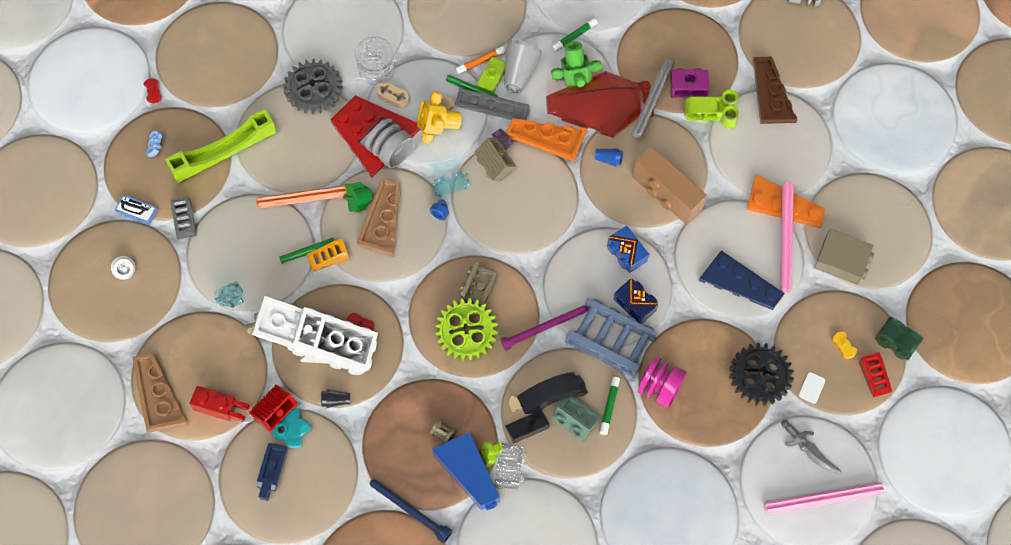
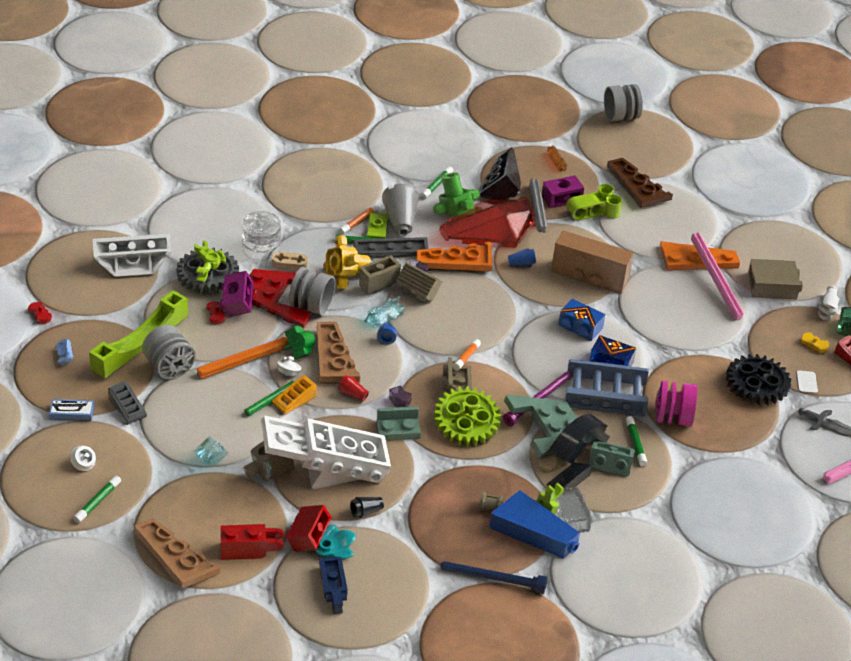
camera: 25 degrees left, 25 degrees down
(118, 314) = (97, 499): none -> green bar
(234, 177) = (168, 351): none -> light grey wheel
(251, 50) = (132, 254): none -> white wedge
(301, 141) = (216, 314): none -> red piece
(314, 81) = (211, 260): none -> lime piece
(324, 125) = (237, 294): none -> magenta brick
(336, 221) = (288, 367): none -> white hat
(381, 264) = (352, 388): none -> red cone
(403, 317) = (398, 423): none -> sand green bracket
(419, 289) = (400, 397): none -> clear purple piece
(462, 139) = (379, 274): none -> dark tan brick
(498, 259) = (466, 355): none -> bar
(544, 357) = (550, 415): none -> sand green wing
(640, 49) = (504, 178): none -> black wedge
(707, 36) = (556, 158): none -> clear orange axle
(736, 278) = (690, 318): dark blue wing -> none
(883, 303) = (828, 303): none -> white arm

